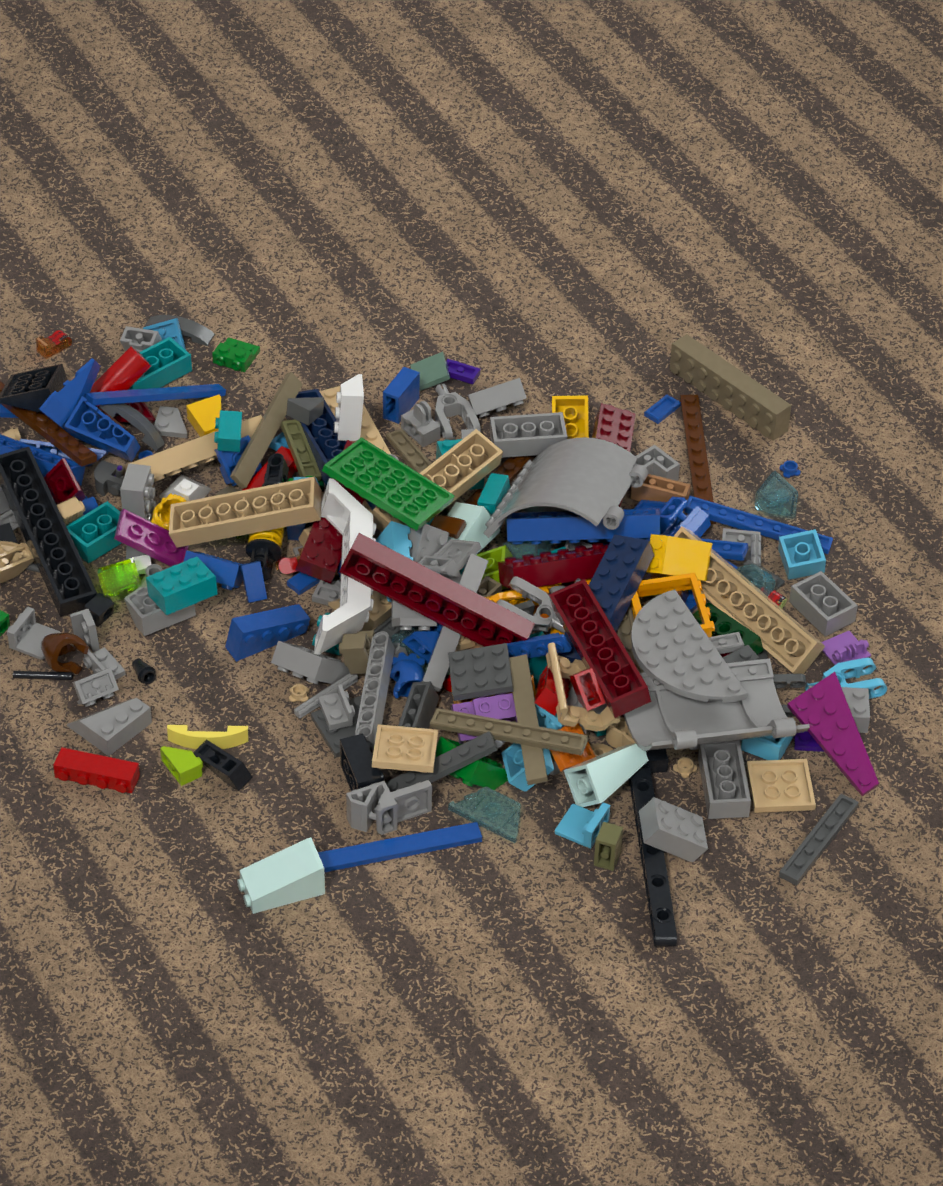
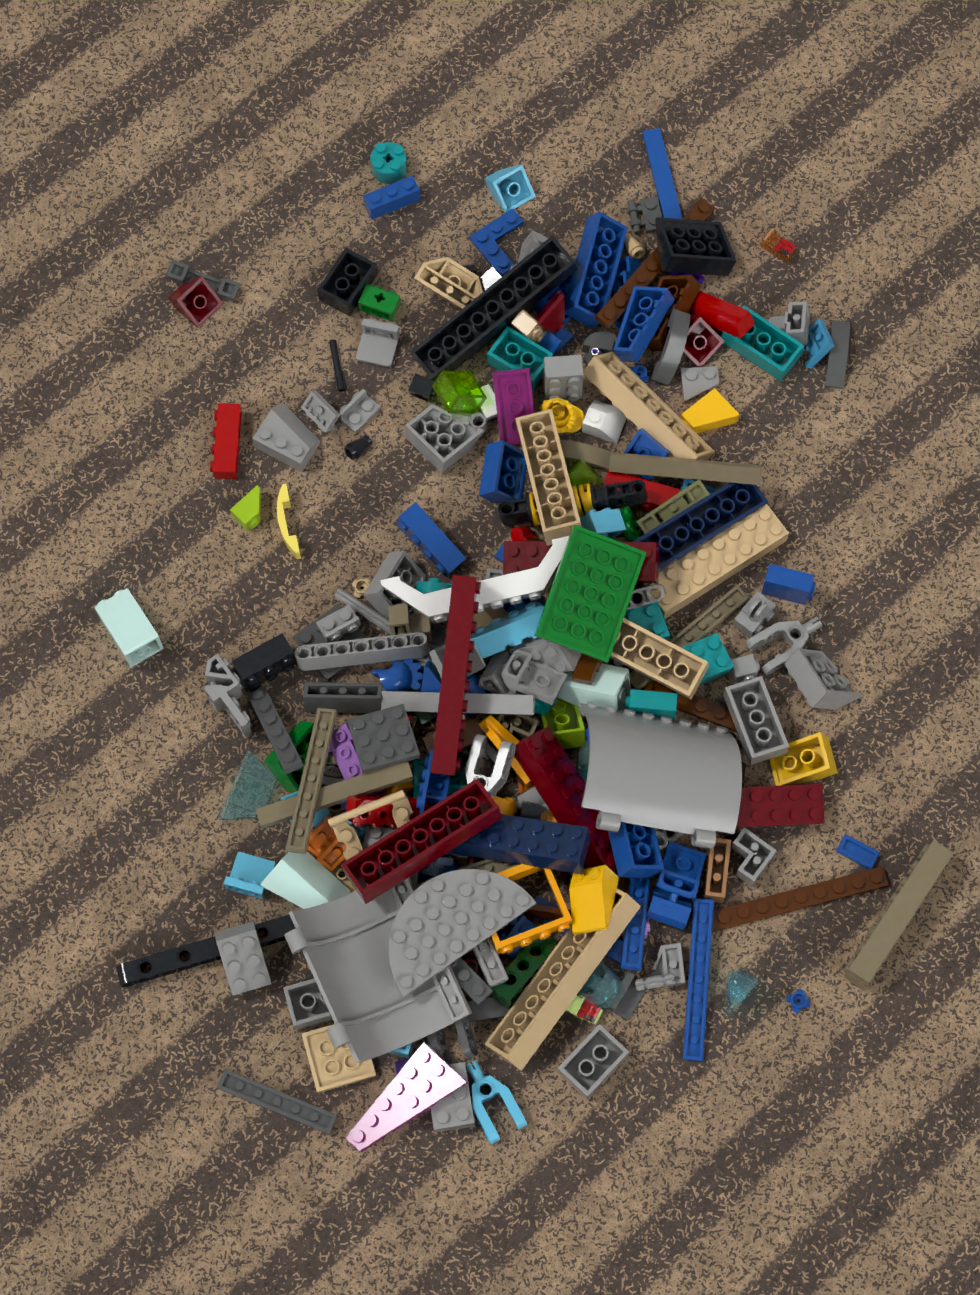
camera: 80 degrees right, 25 degrees up
(59, 644) = (362, 365): reddish brown piece -> none
(62, 403) = (678, 284): blue wedge -> none
(85, 628) = (387, 385): light grey bracket -> none
(155, 394) = (715, 355): blue tile -> none
(181, 585) = (446, 447): teal brick -> none
(223, 765) = (250, 546): black slope -> none
(229, 431) = (657, 432): teal brick -> none
(235, 354) = (815, 415): green plate -> none
(253, 581) = (486, 511): blue tile -> none
(305, 409) = (717, 497): dark grey slope -> none
(349, 409) = (715, 536): white wedge -> none
(400, 846) = (194, 719): blue tile -> none
(405, 748) = (280, 692): tan plate -> none
(432, 370) = (840, 605): sand green tile -> none
(462, 371) = (853, 635): dark purple plate -> none
(586, 688) = (369, 834): red torso -> none
(608, 846) = (217, 902): olive brick -> none
(801, 554) = (658, 1029): medium azure brick -> none
(845, 648) = (541, 1093): medium lavender hinge -> none

